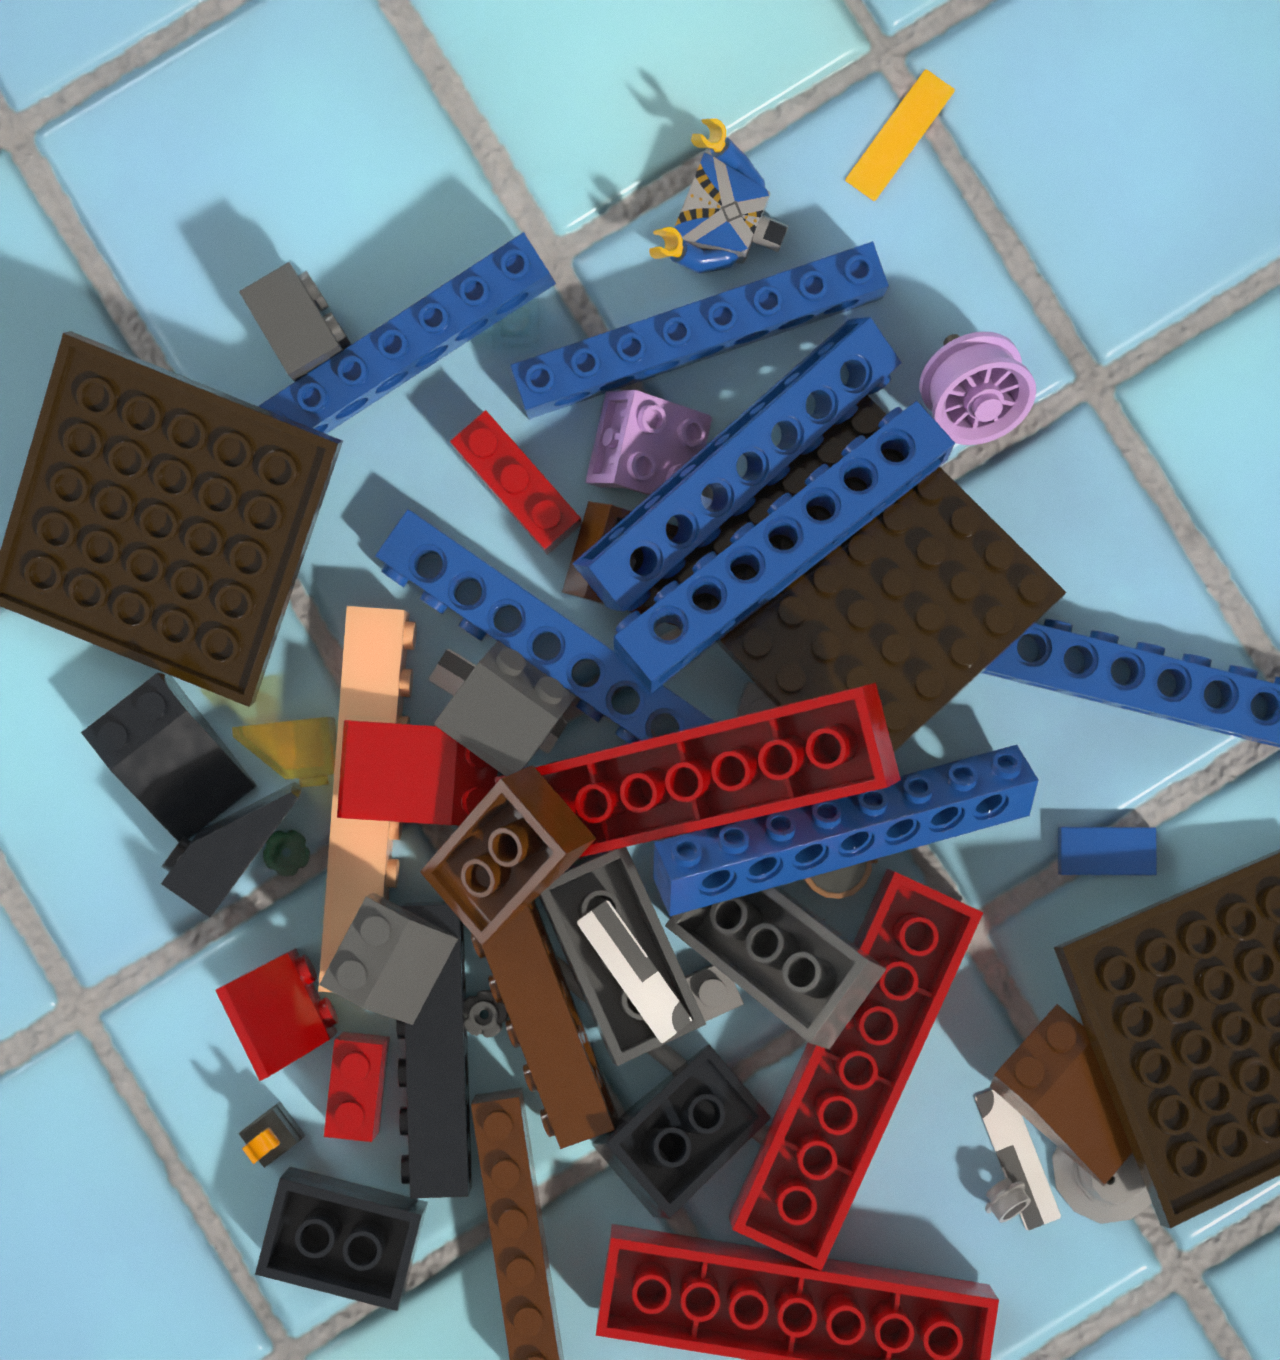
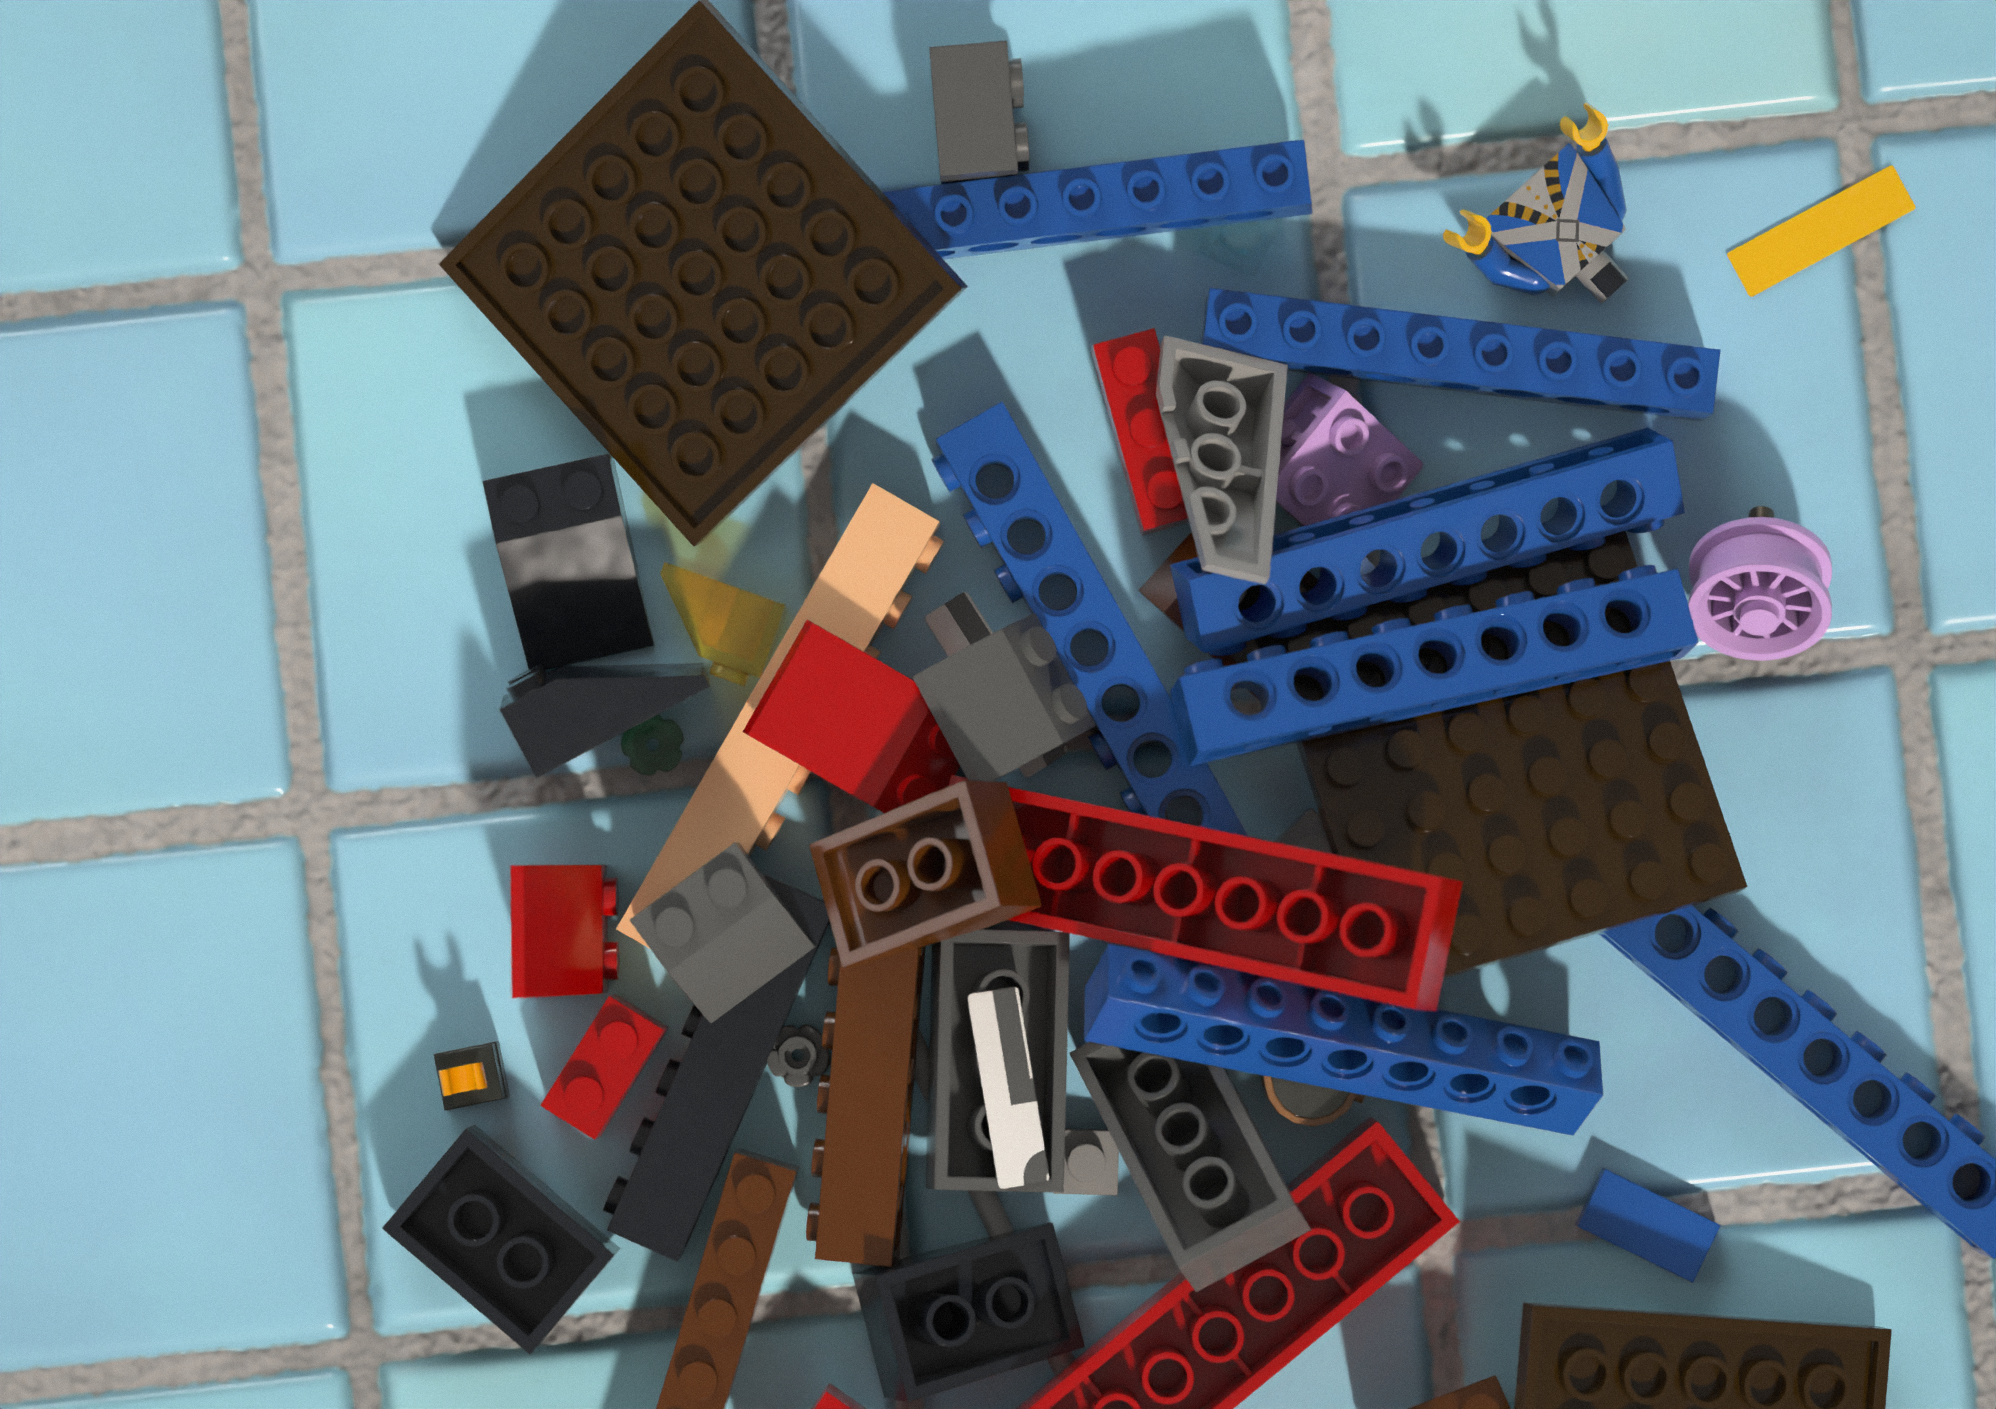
camera: 25 degrees right, 0 degrees up
(571, 465) = (1225, 445): none -> light grey wedge

